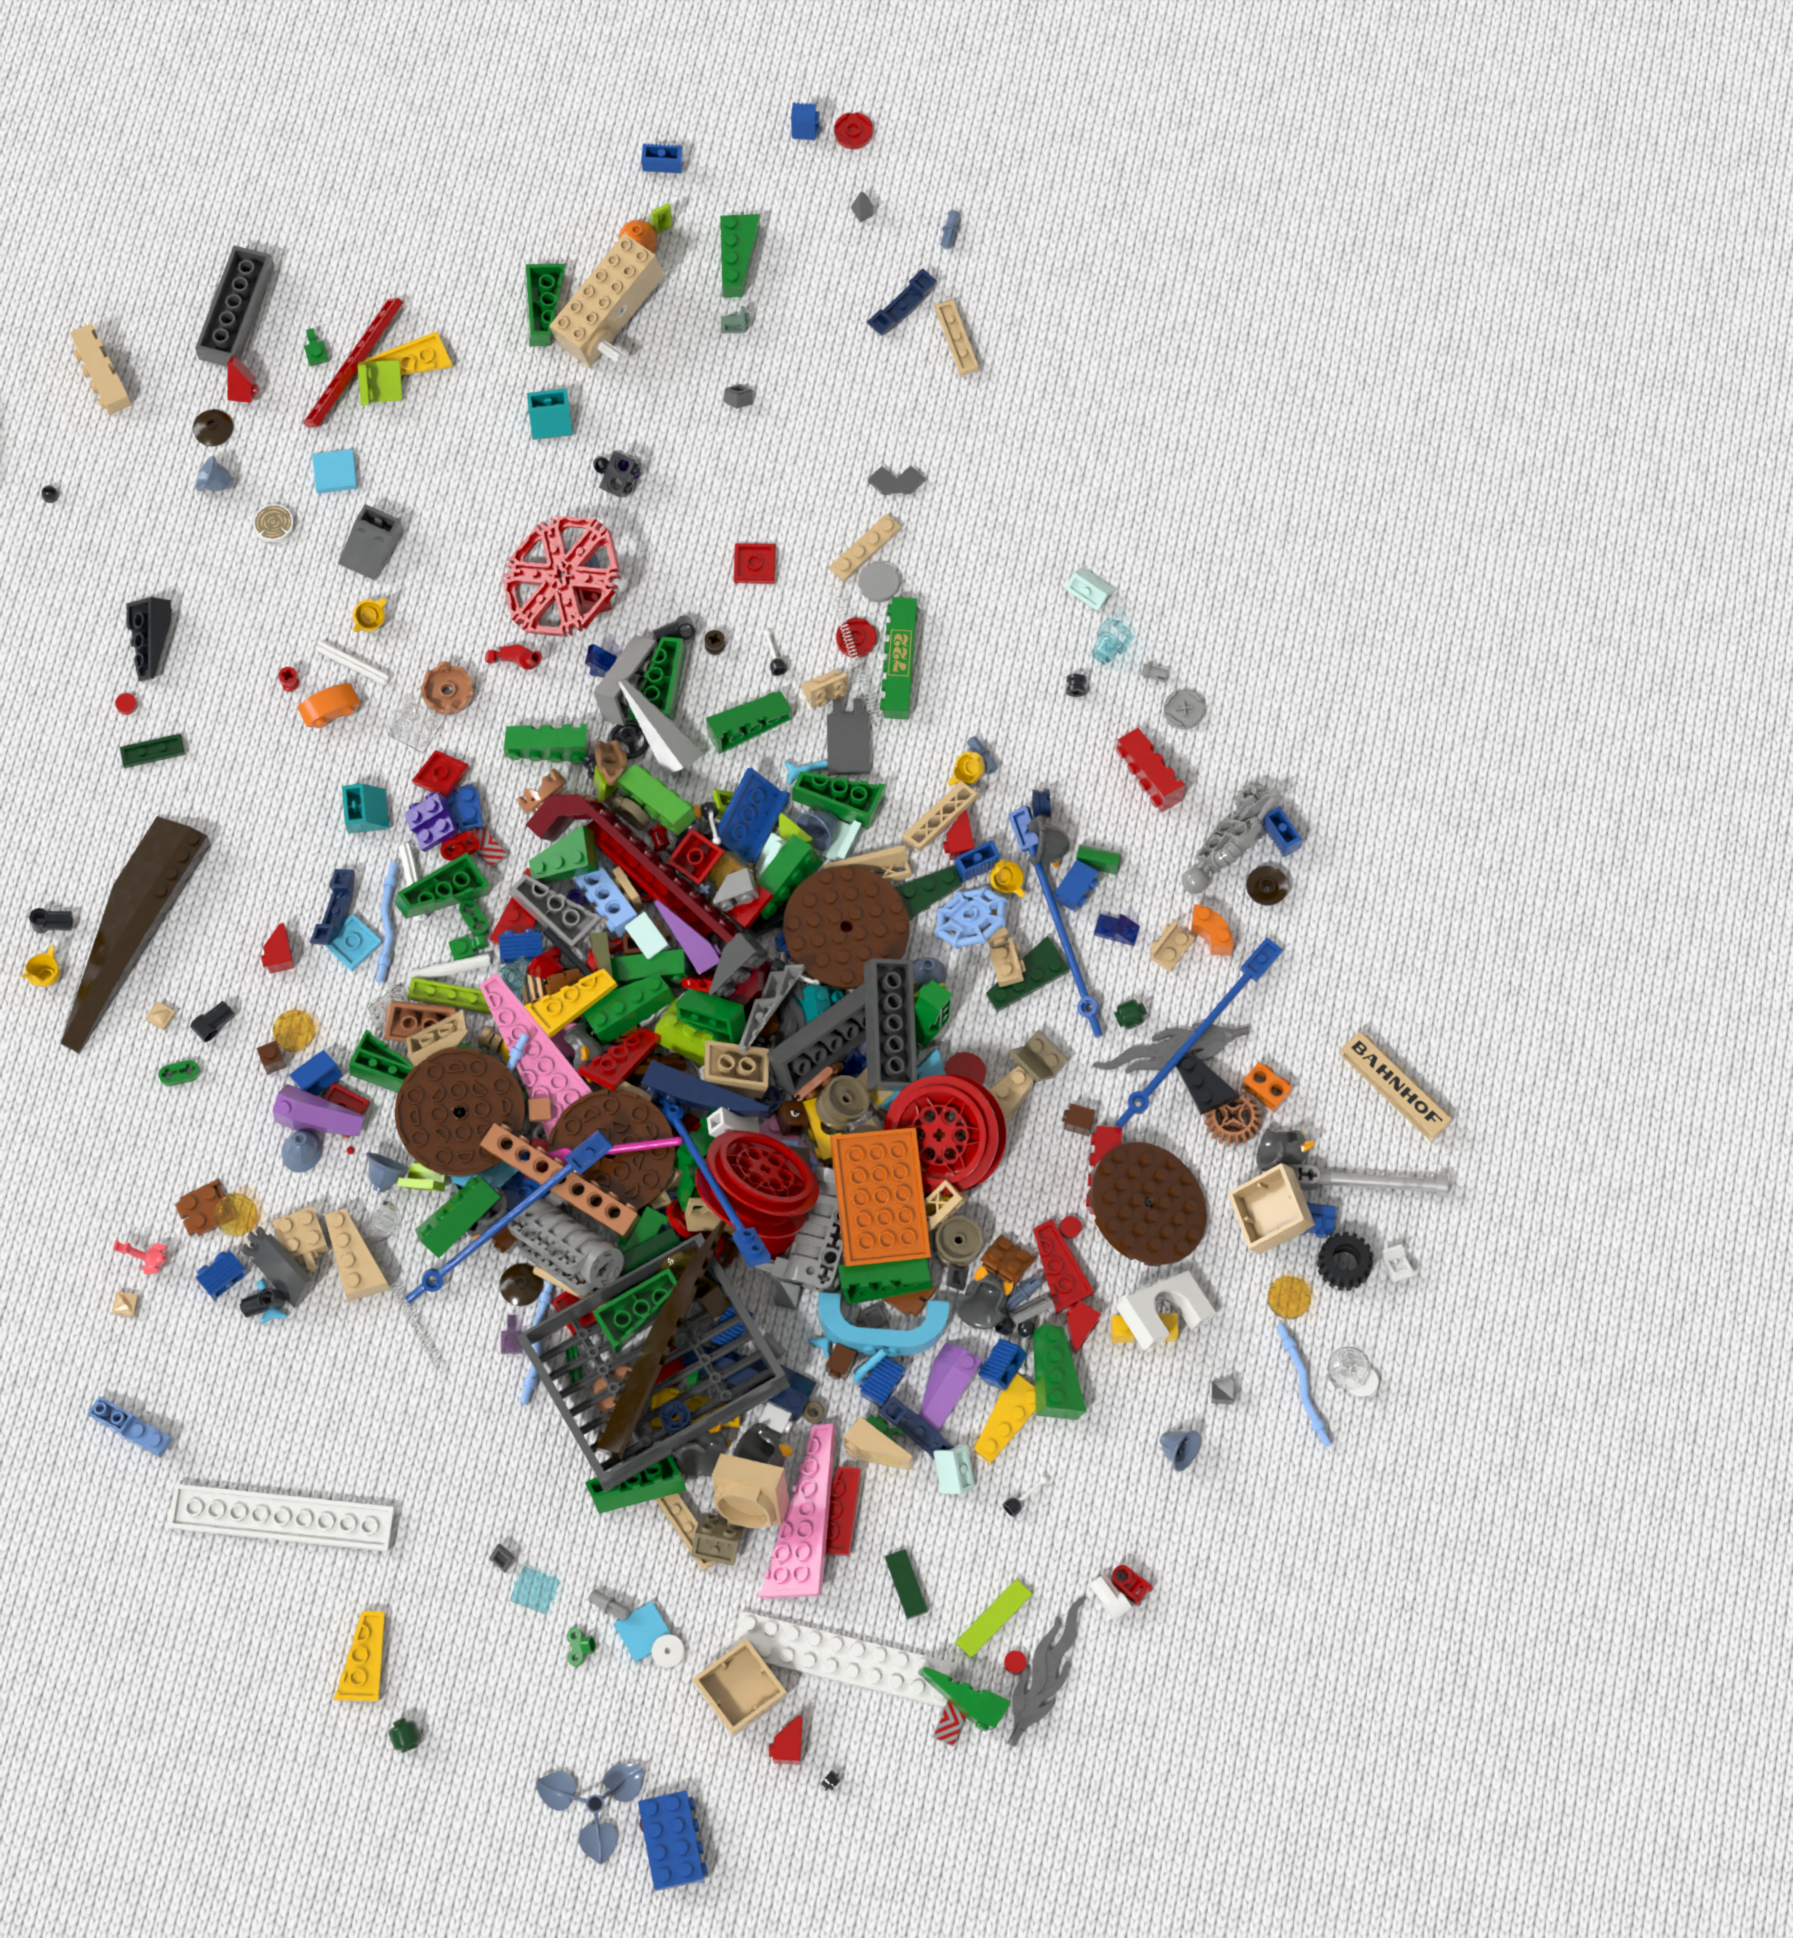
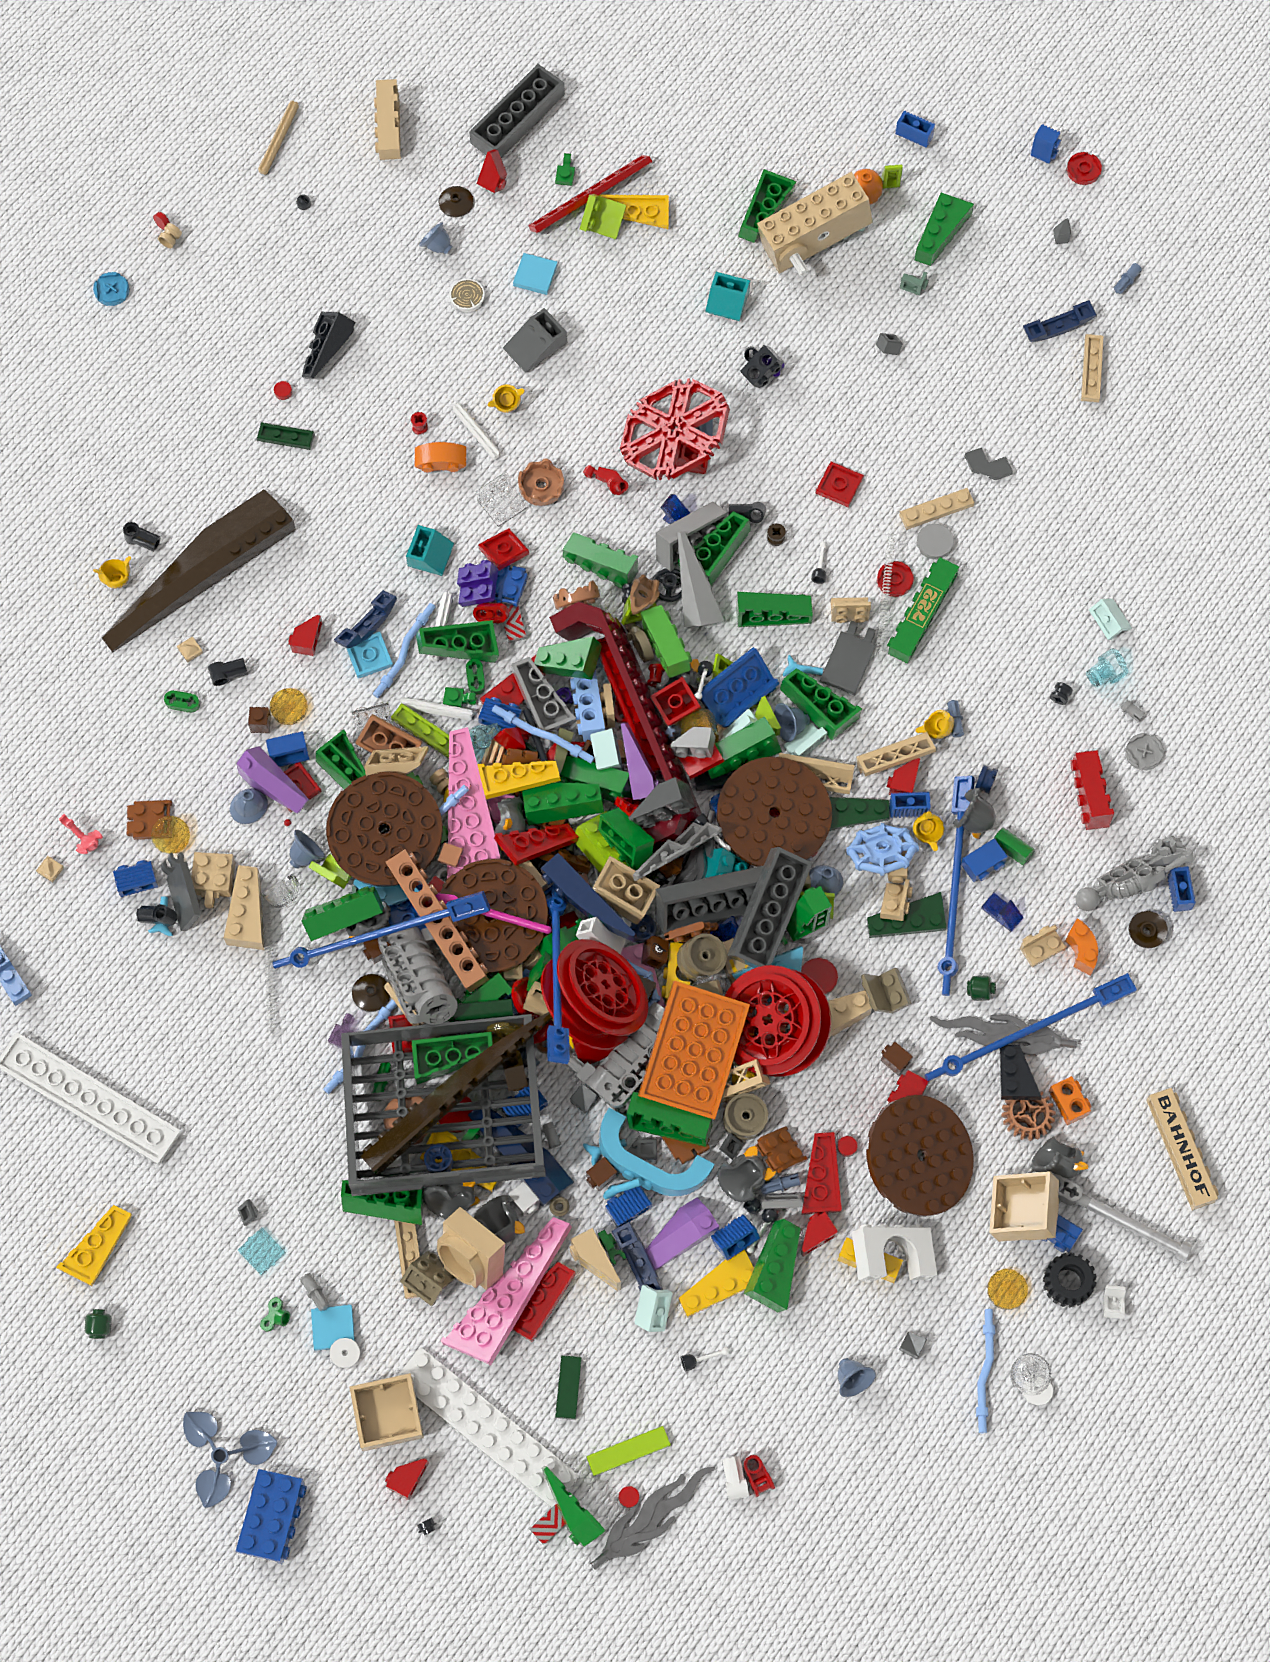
camera: 25 degrees right, 0 degrees up
(533, 944) = (575, 750): none -> light blue bar

